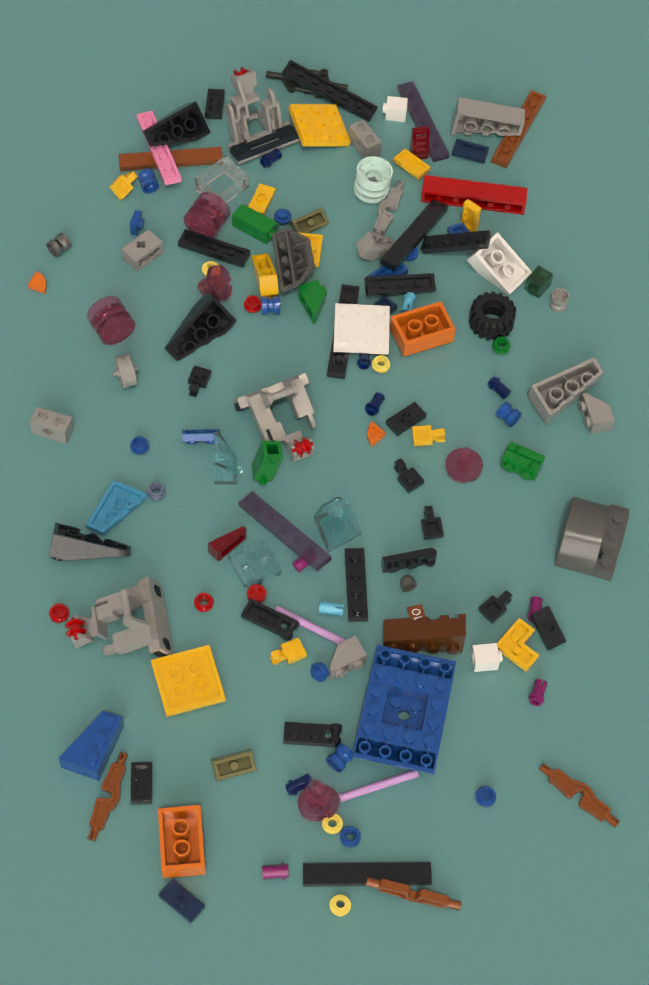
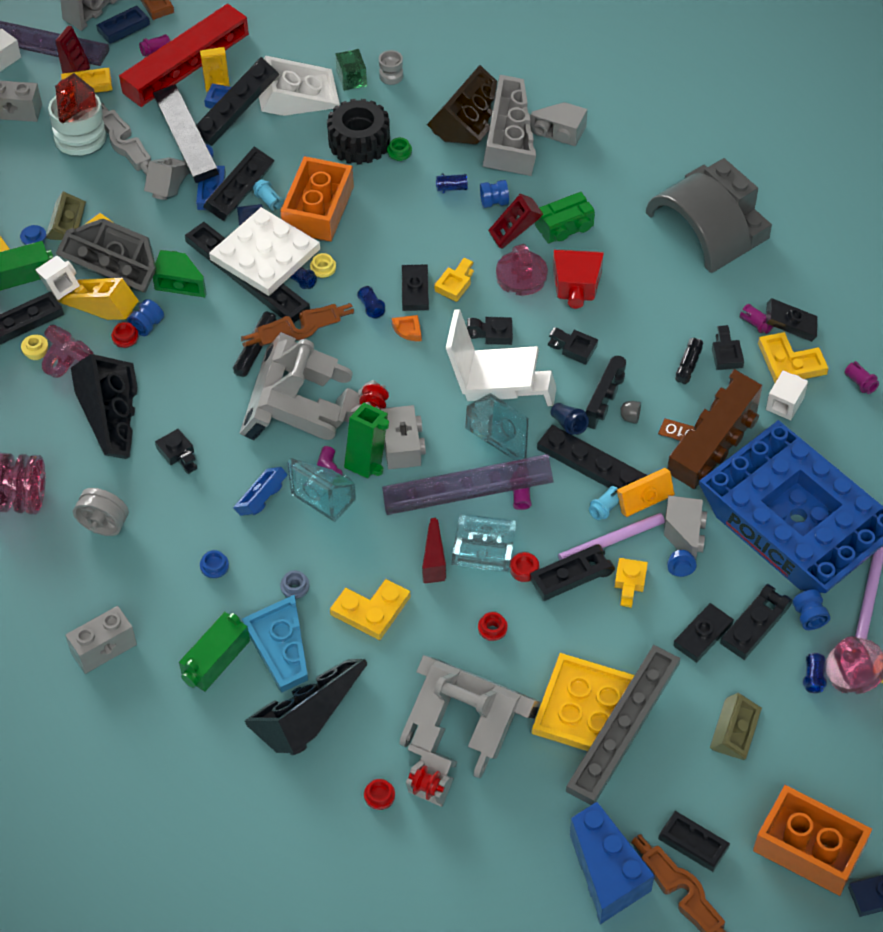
camera: 50 degrees left, 5 degrees down
(83, 480) = (214, 651): none -> green brick
(169, 541) = (371, 615): none -> yellow plate
(183, 702) = (622, 725): none -> dark grey plate
(245, 454) = (326, 458): none -> magenta arm
(260, 246) = (58, 277): none -> white brick
(283, 710) = (703, 632): none -> black plate
(291, 478) = (402, 439): none -> light grey brick
(297, 368) = (251, 352): none -> black axle
(335, 383) = (310, 322): none -> dark orange piece
(353, 624) = (645, 492): none -> light orange plate
(368, 490) = (496, 371): none -> white piece
(373, 555) = (570, 418): none -> dark blue cone
(374, 166) = (74, 98): none -> clear red slope
(464, 174) = (149, 46): none -> magenta pin
(472, 591) = (689, 360): none -> black axle
(483, 495) = (577, 275): none -> red torso
(497, 436) = (529, 214): none -> dark red slope
(554, 358) = (467, 111): none -> dark brown wedge

